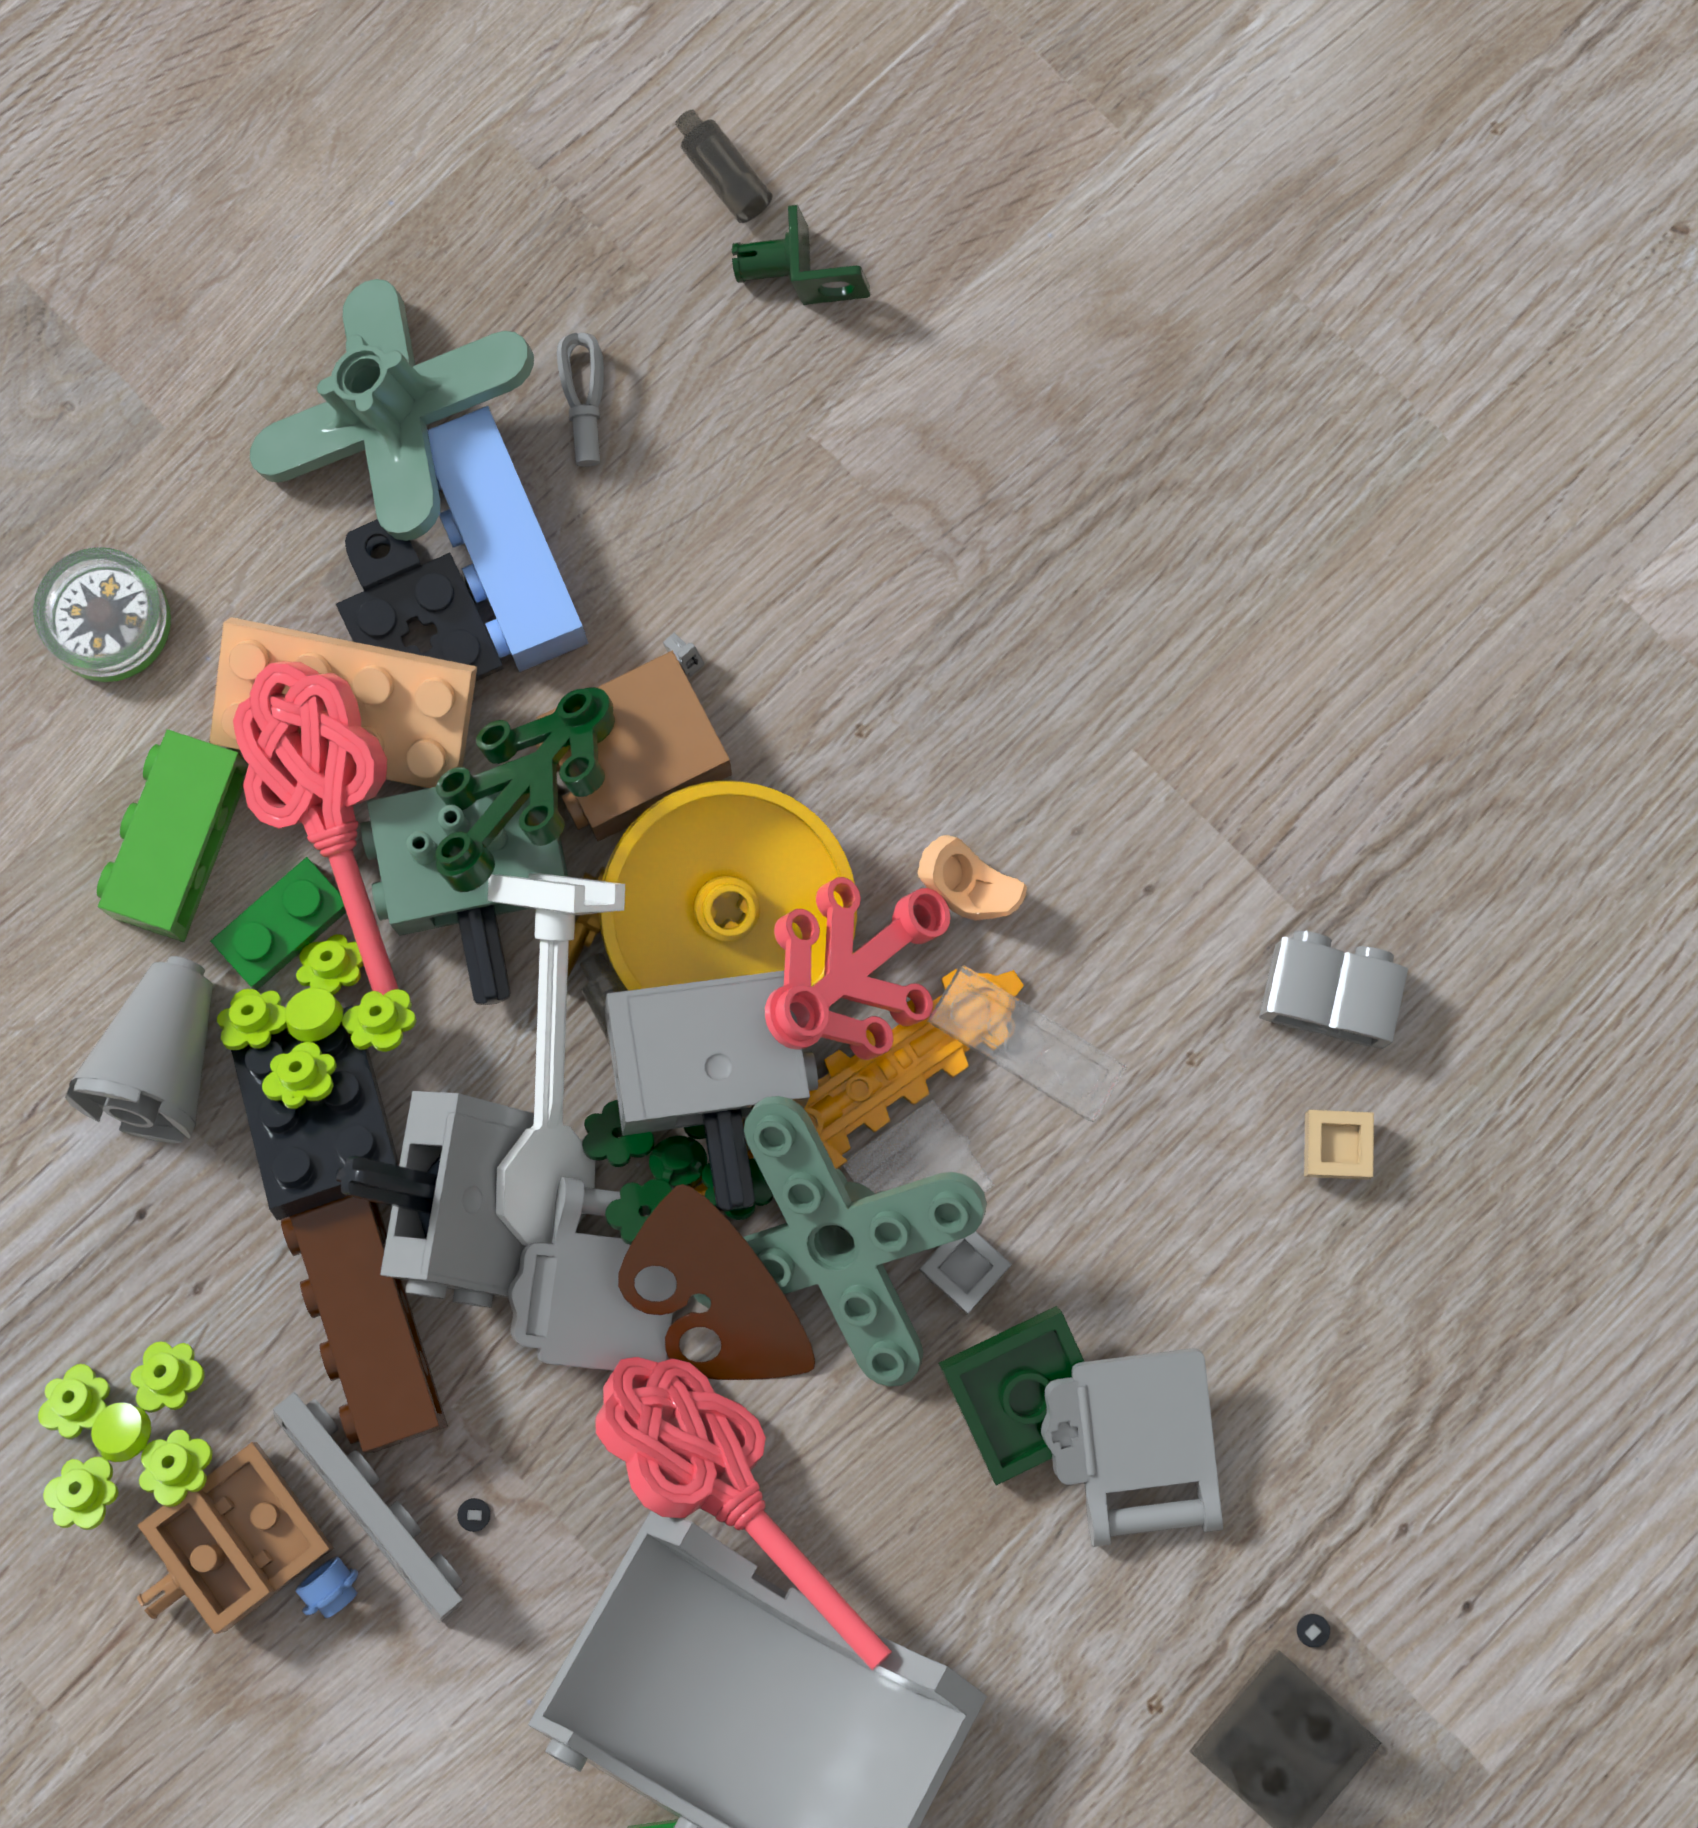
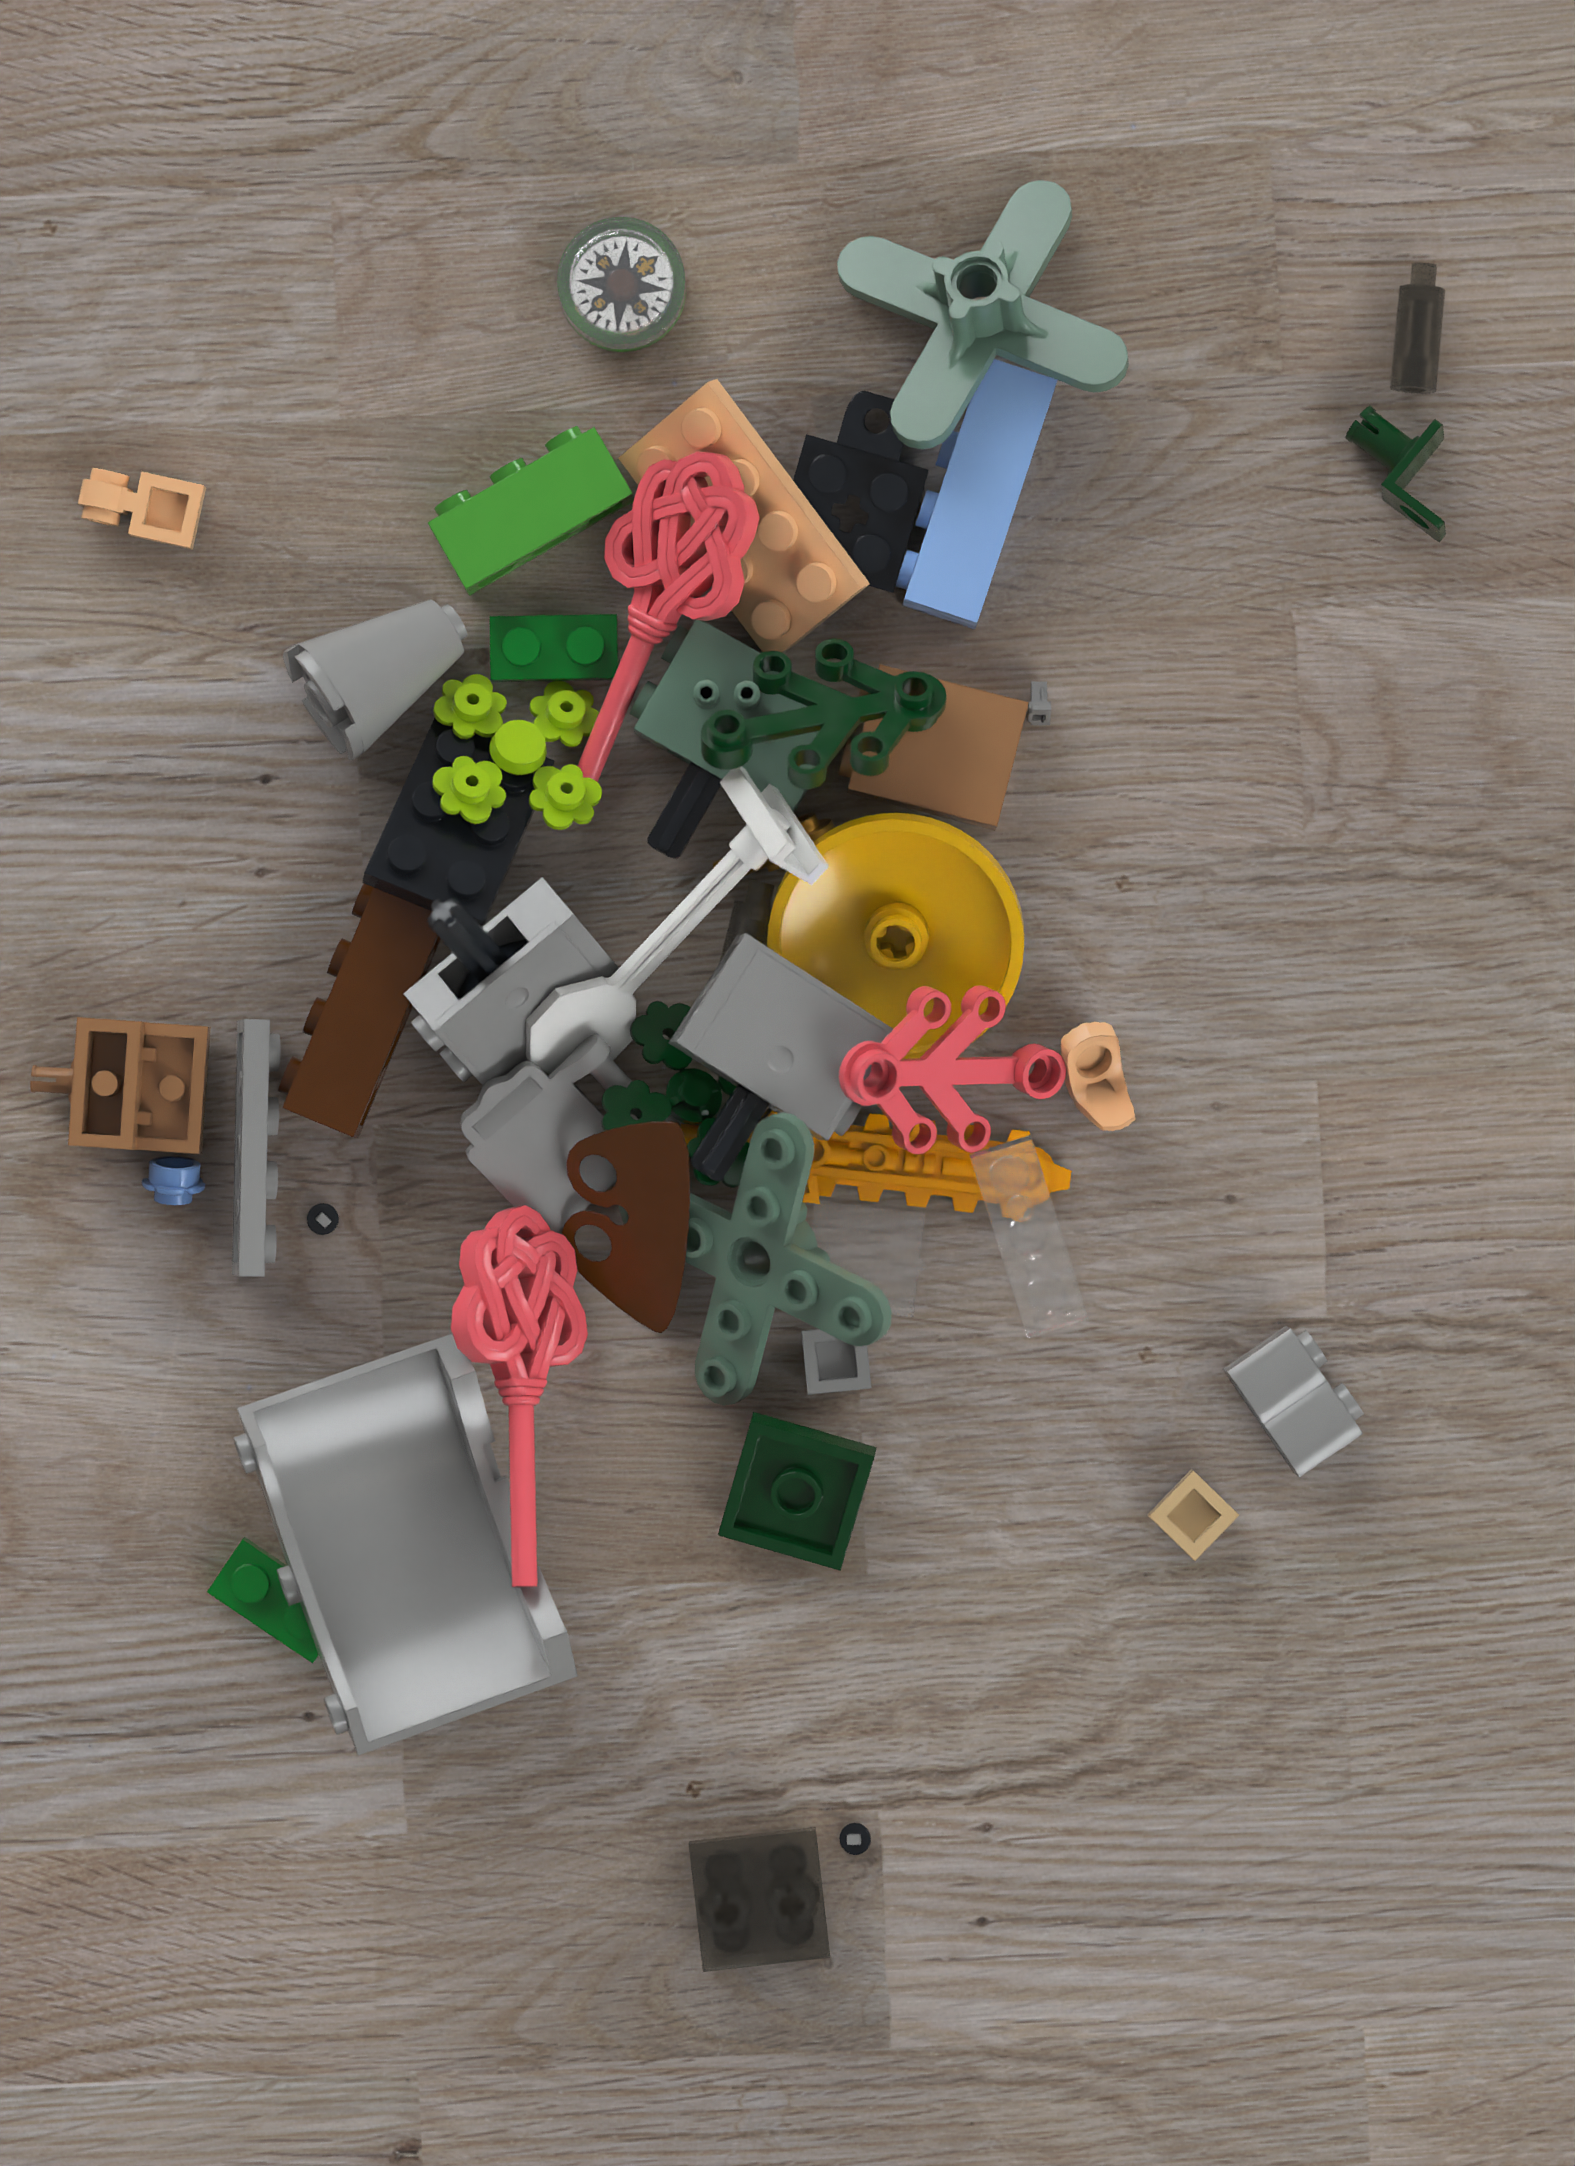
camera: 40 degrees right, 10 degrees up
(122, 1433) = (120, 939): lime plant -> none
(583, 415) = (1131, 444): light grey piece -> none
(1133, 1429) = (852, 1584): light grey piece -> none

